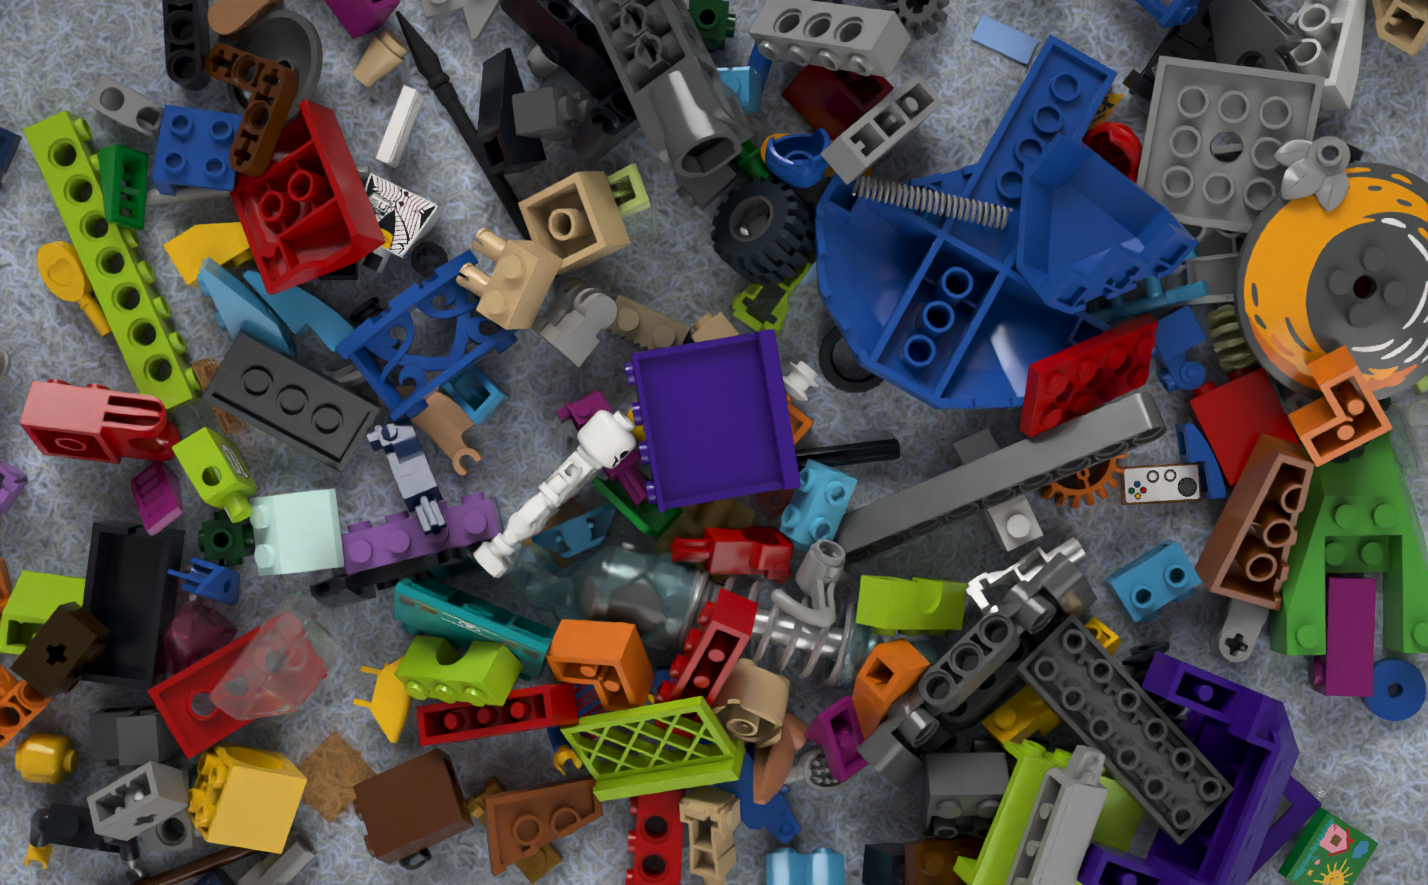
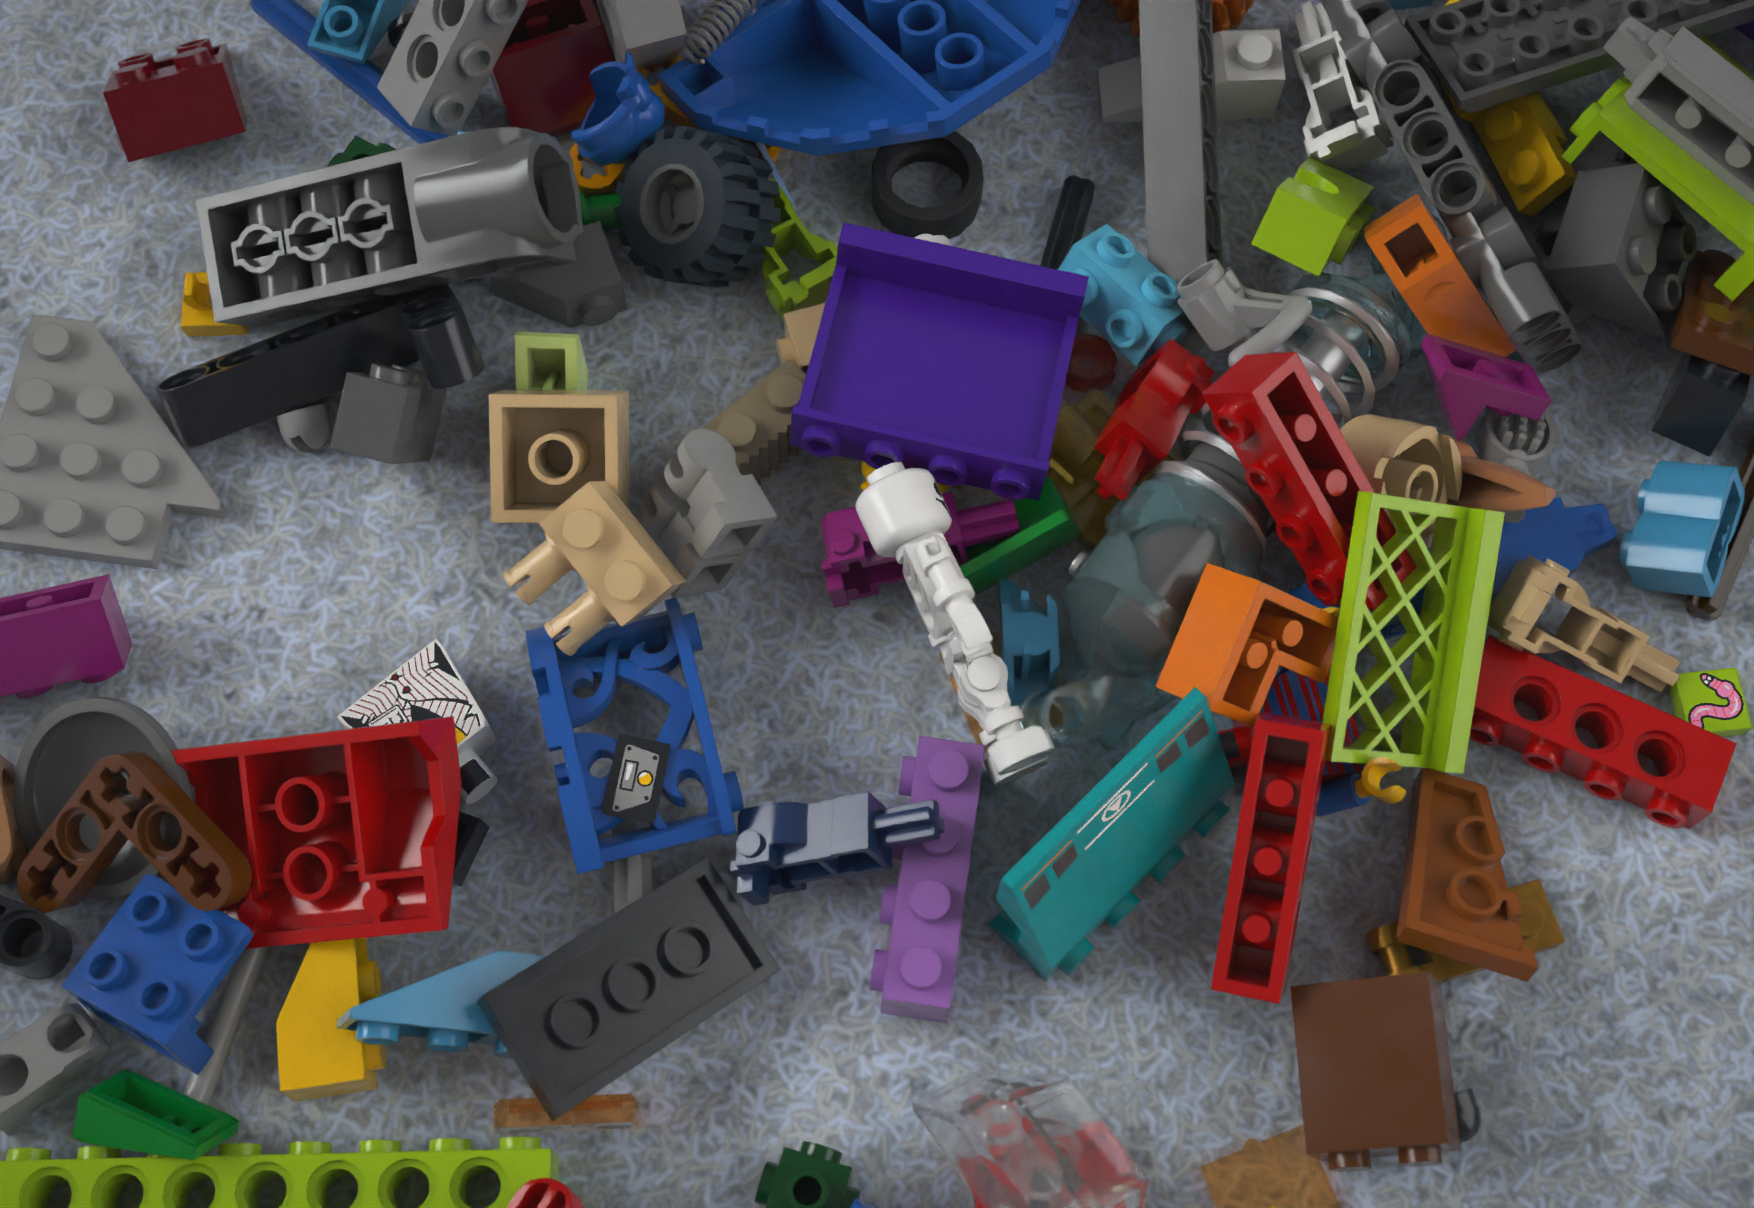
camera: 70 degrees left, 20 degrees down
(217, 472) = (693, 1152): lime torso -> none
(296, 532) = (846, 1065): light aqua slope -> none
(305, 311) = (497, 914): dark azure slope -> none
(359, 586) = (976, 997): black wedge -> none
(367, 310) = (548, 824): black bush -> none
(380, 57) = (174, 647): tan cone -> none
(390, 701) = (1172, 1032): yellow piece -> none
(397, 356) = (636, 779): none -> black sticker
(400, 127) = (291, 659): white tile -> none
(419, 250) = (503, 686): black bush -> none
(430, 67) = (226, 586): black piece -> none
(439, 672) = (1204, 837): lime arch -> none
(445, 425) = (769, 775): light nougat piece -> none
(477, 394) = (751, 707): dark azure slope -> none
(496, 132) = (358, 500): black slope -> none

